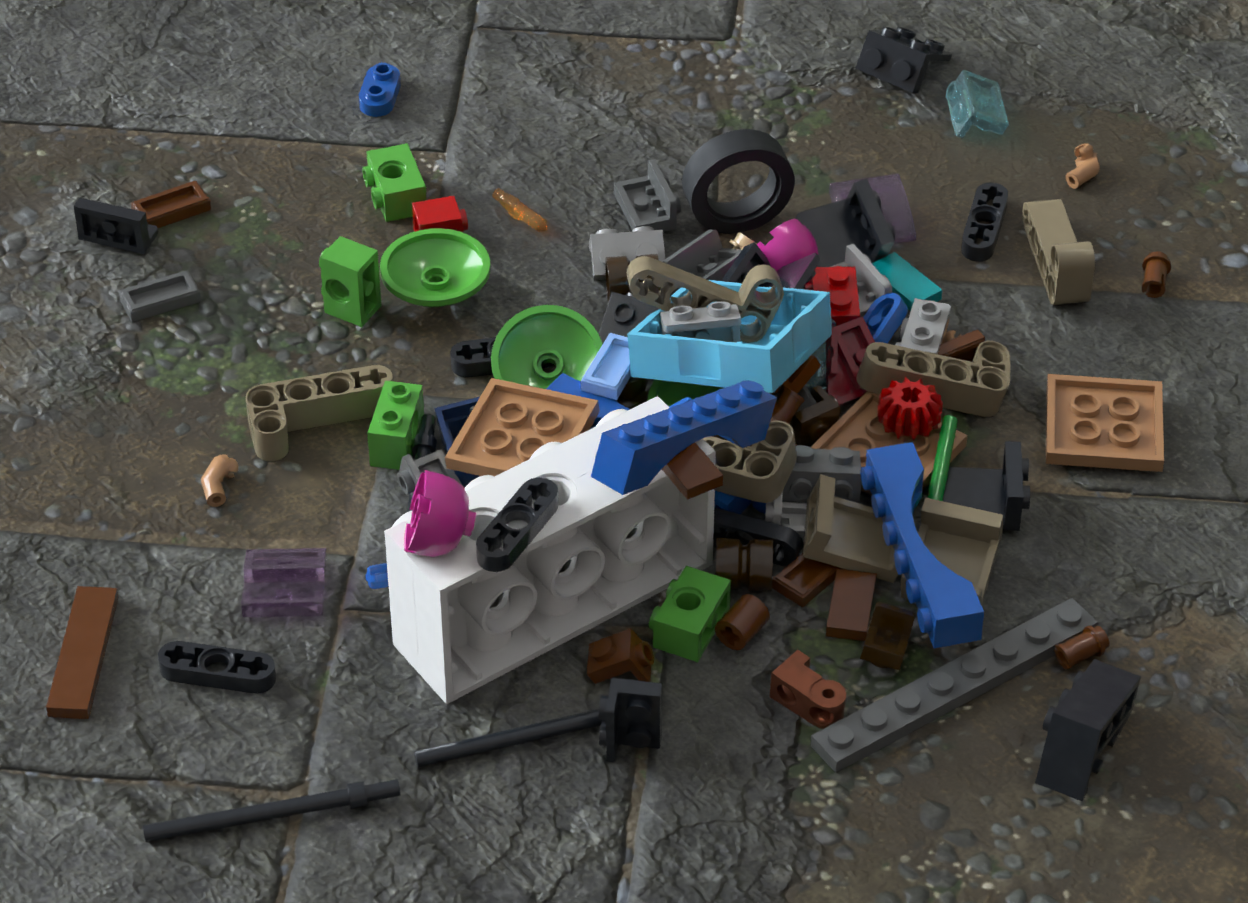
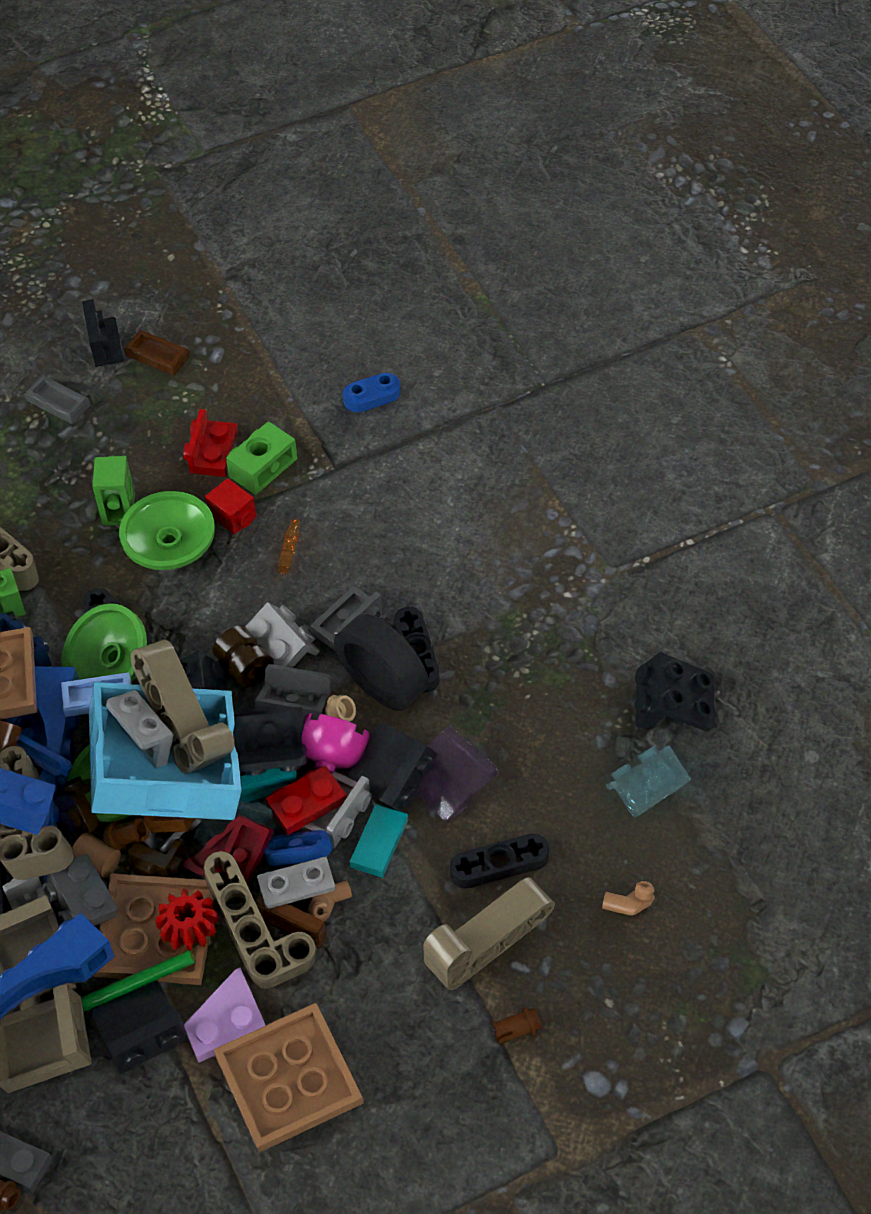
camera: 60 degrees right, 10 degrees up
(340, 212) = (209, 445): none -> red bracket
(744, 180) = (421, 637): none -> black beam
(998, 428) = (223, 1017): none -> lavender wing

